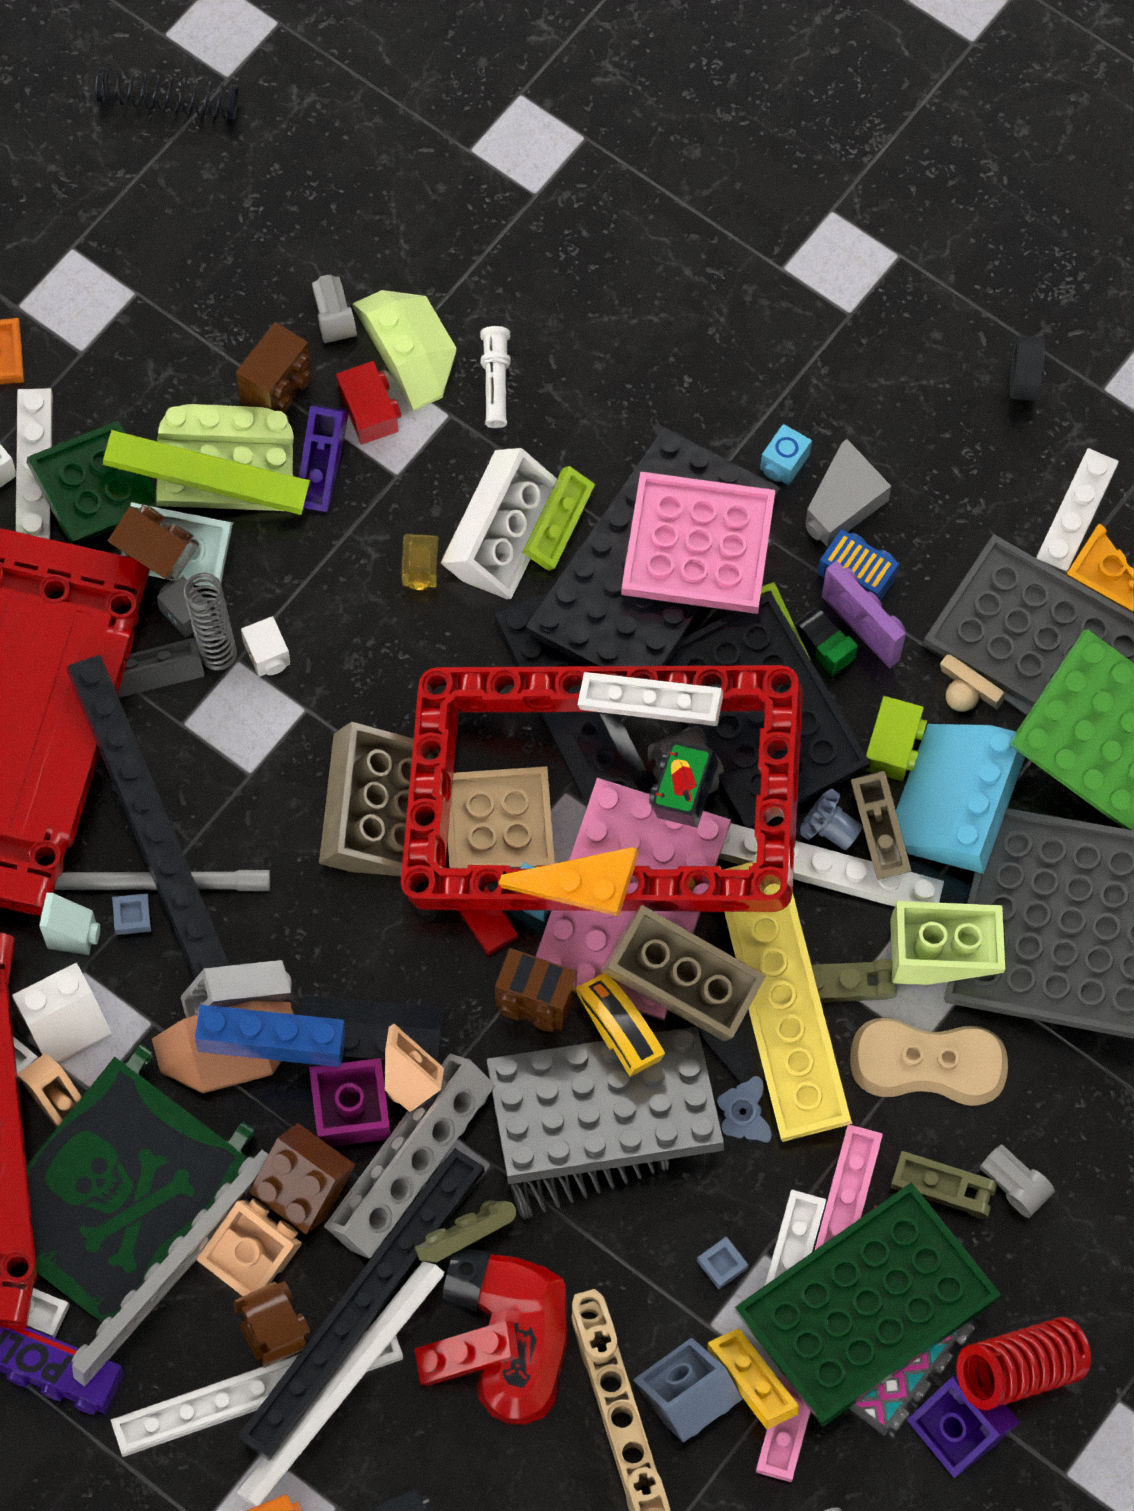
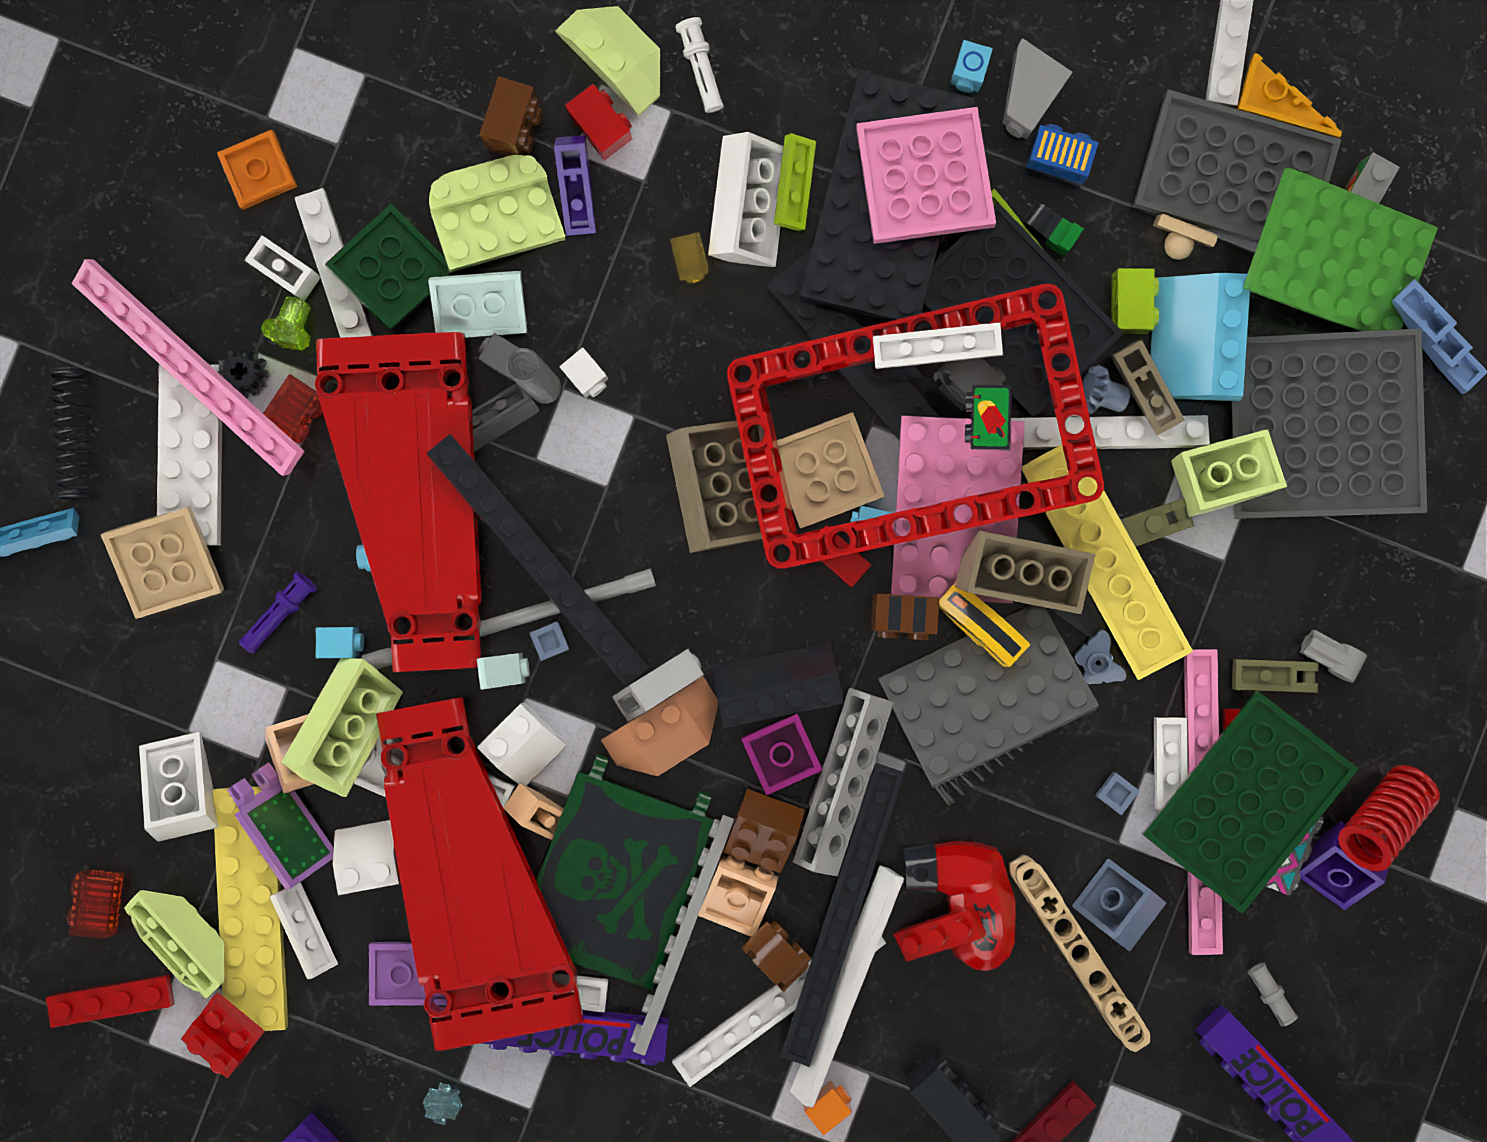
camera: 15 degrees left, 20 degrees up
(153, 542) = (460, 315): reddish brown brick -> none
(206, 472) = (482, 232): lime tile -> none
(270, 1035) = (703, 728): blue brick -> none
(334, 316) = (545, 48): light grey piece -> none
(409, 1071) = (826, 719): light nougat slope -> none
(467, 1230) = (908, 833): olive plate -> none
(586, 882) = (928, 523): light orange wing -> none
(754, 1378) = (1171, 885): yellow plate -> none
(863, 613) = (1081, 198): medium lavender plate -> none
(958, 1063) = (1210, 576): tan plate -> none

